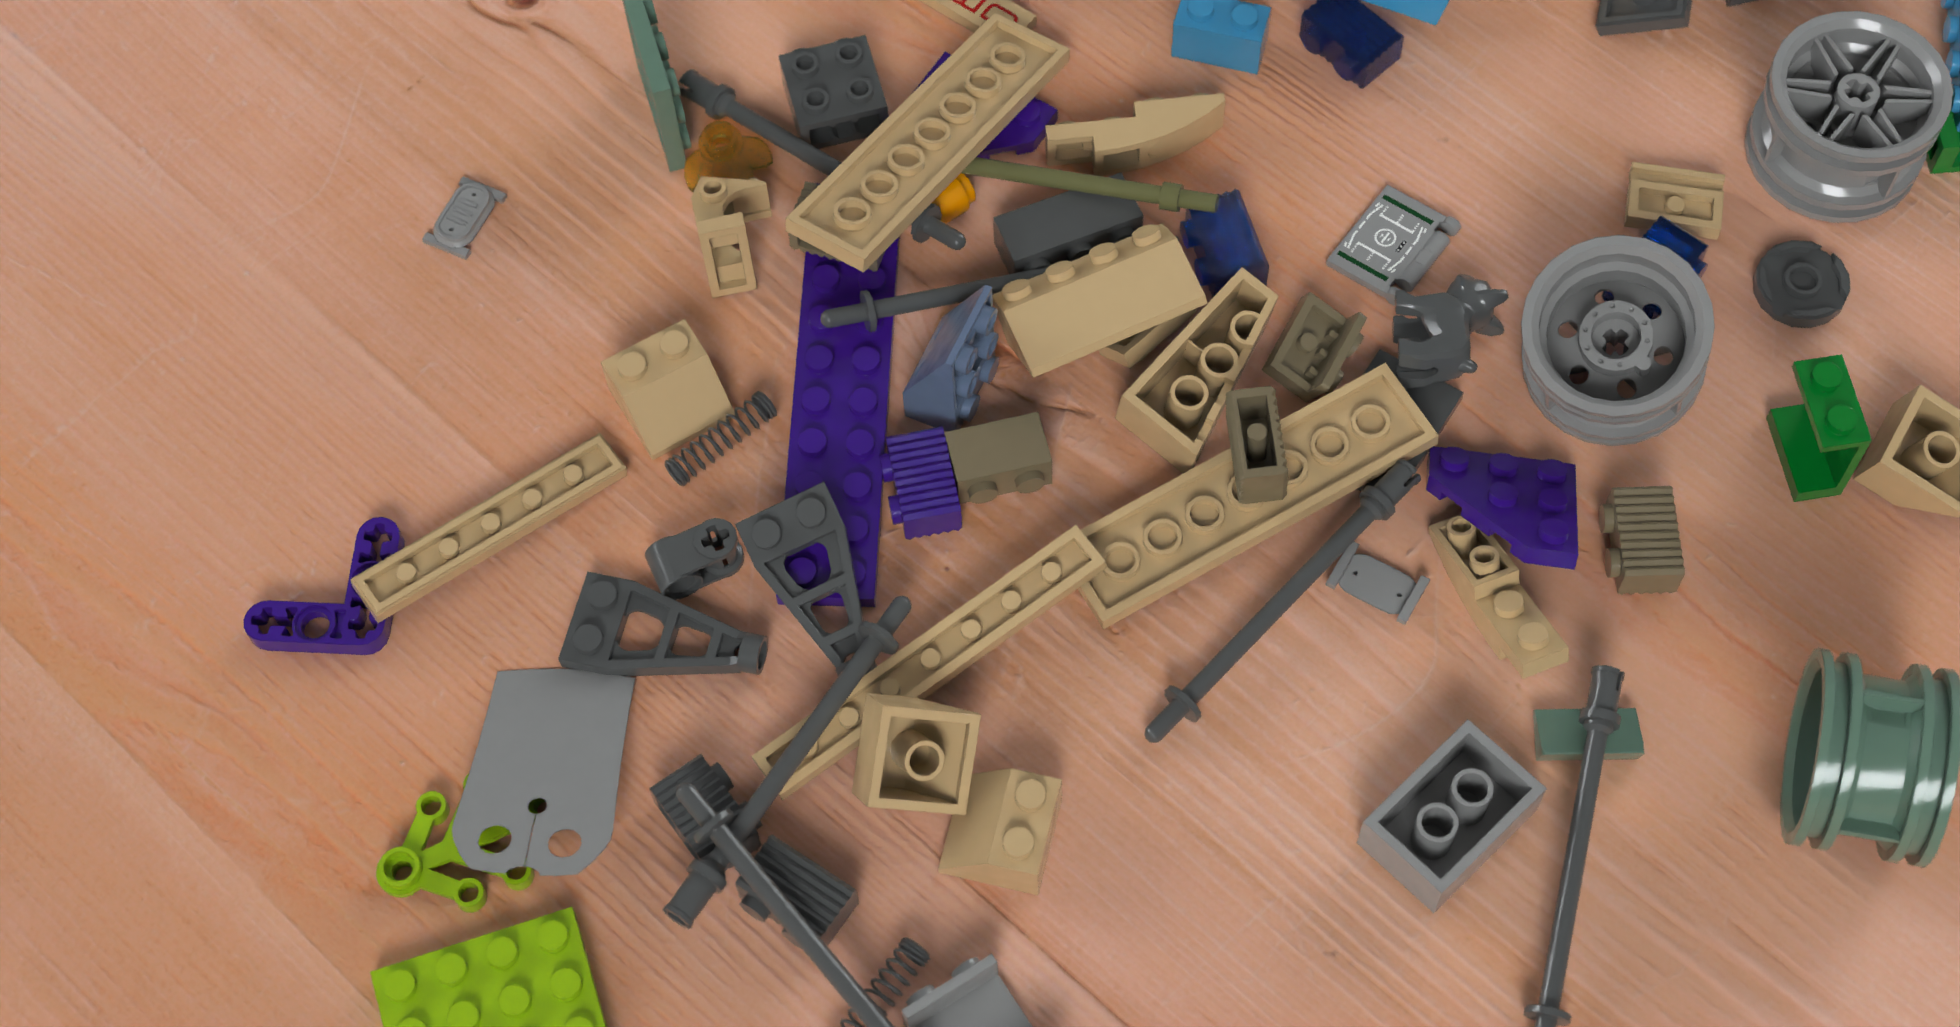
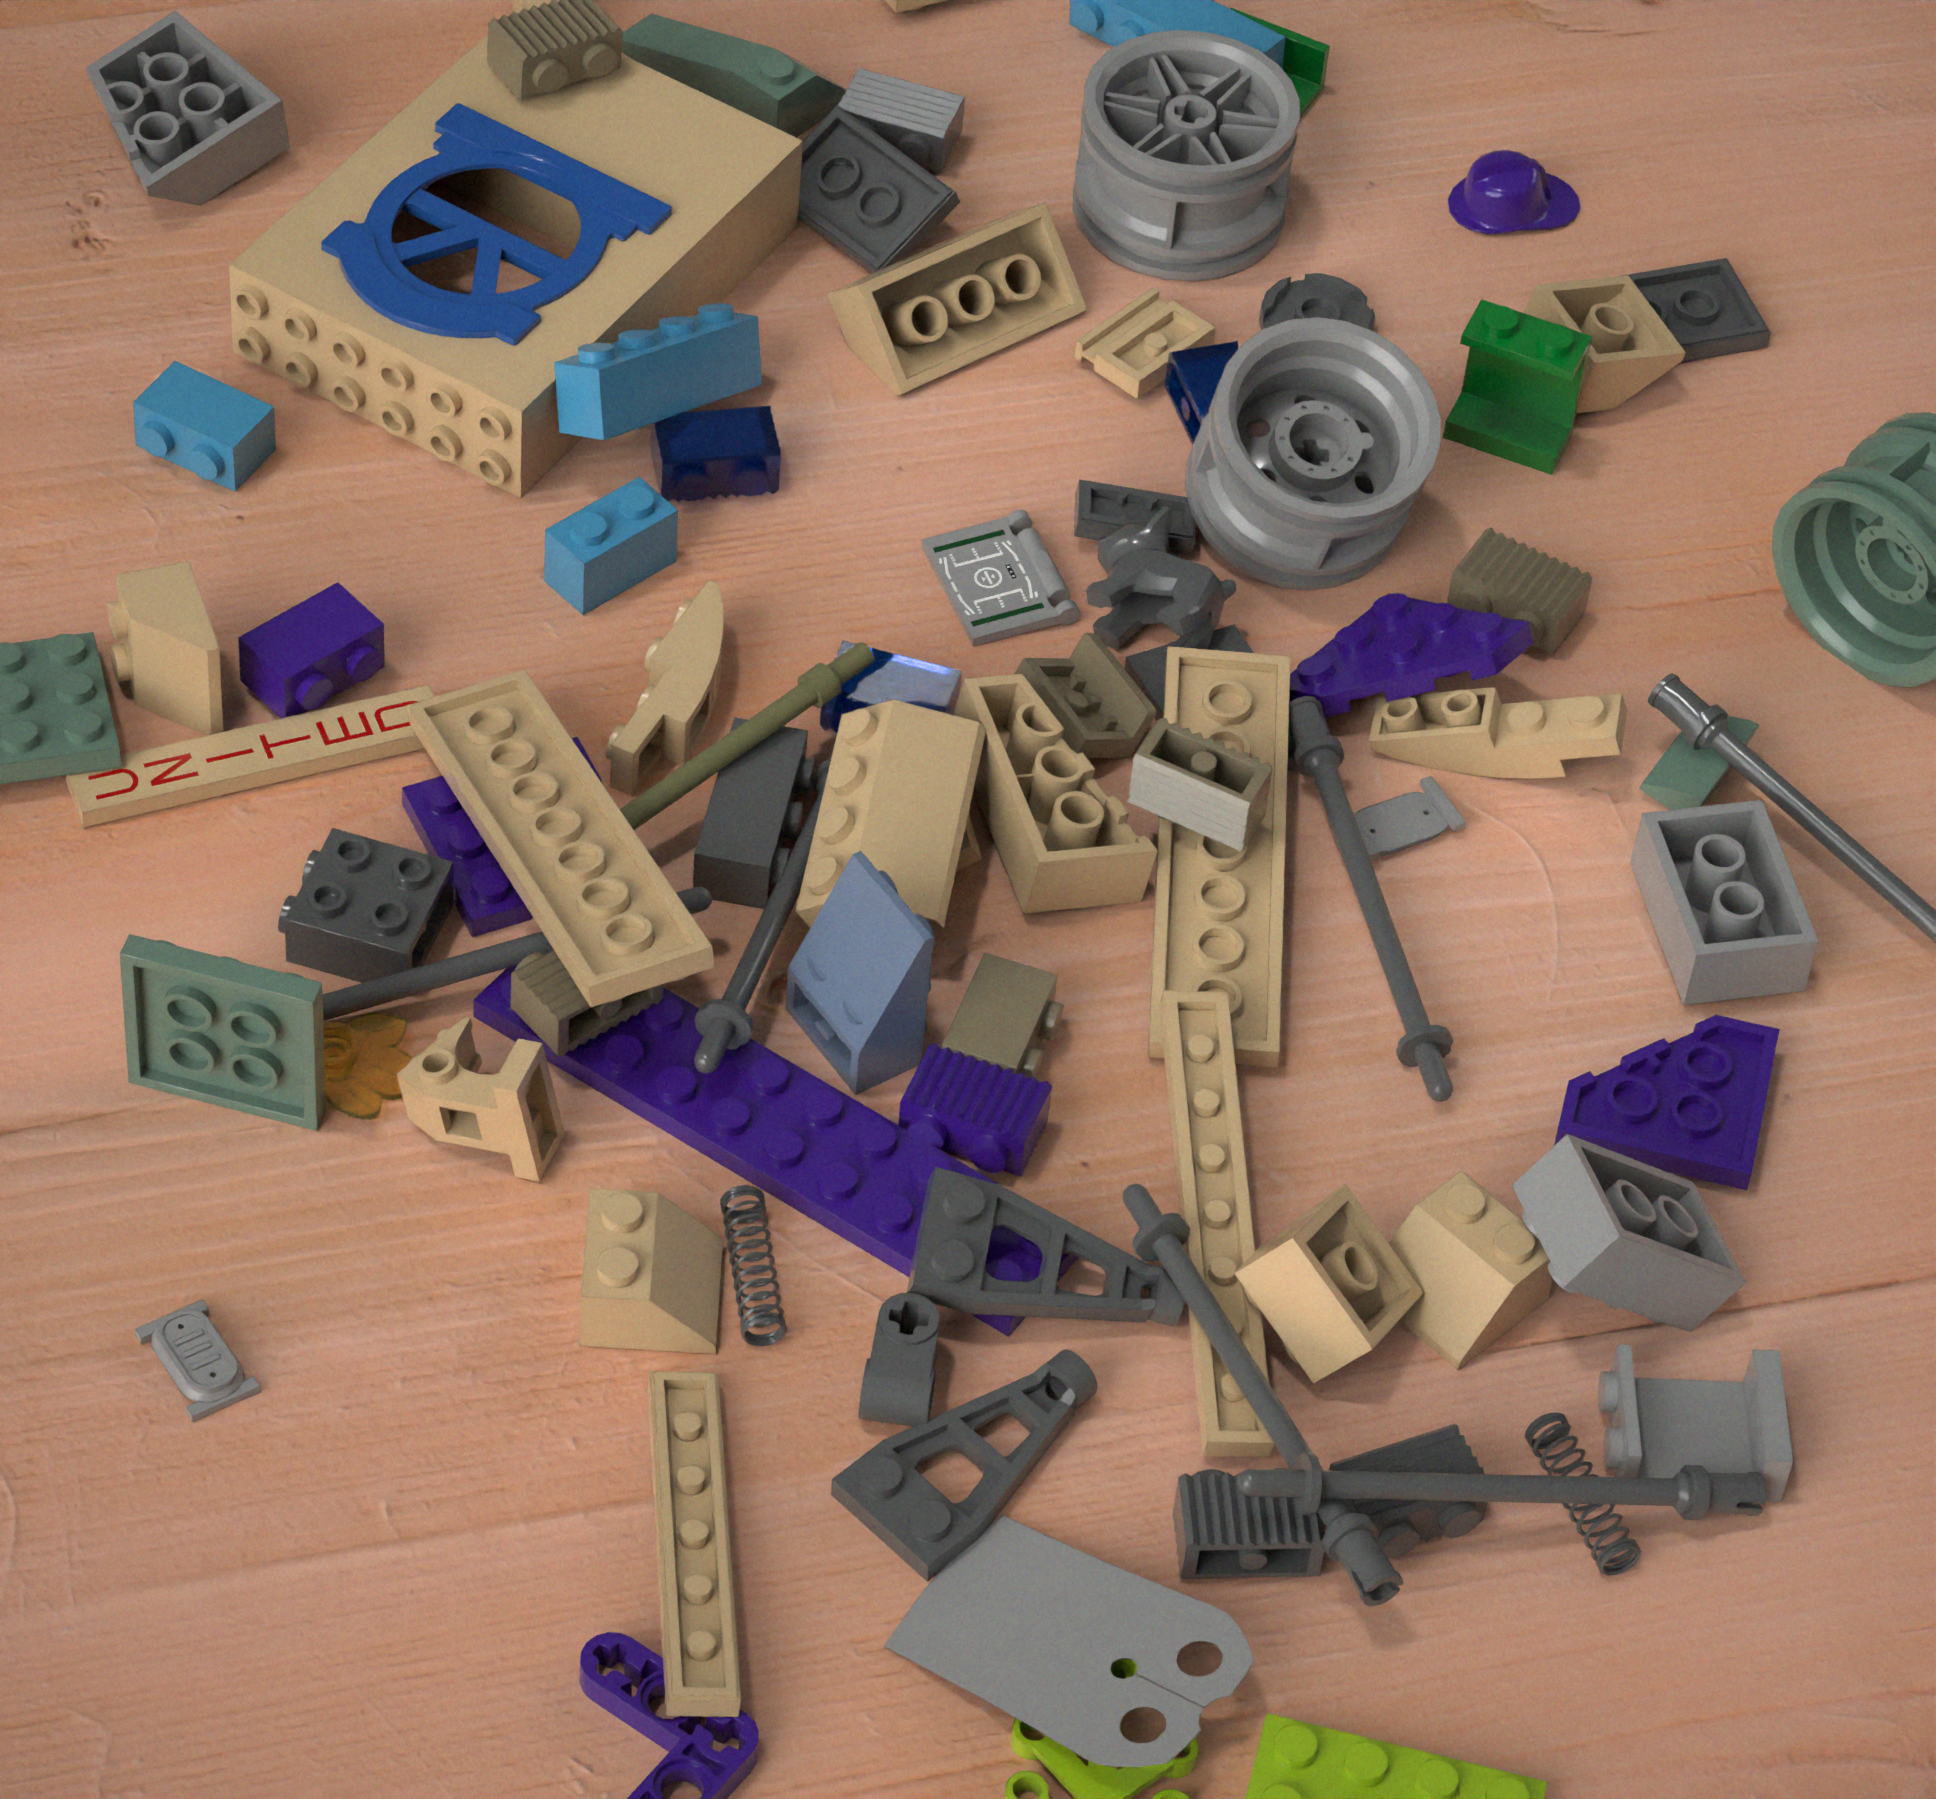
camera: 65 degrees left, 15 degrees down
(1075, 909) = (1627, 1234): none -> light grey brick
(1260, 887) = (1682, 1102): none -> dark purple plate
(1503, 270) = (1107, 507): none -> dark grey plate
(1609, 81) = (959, 300): none -> tan slope

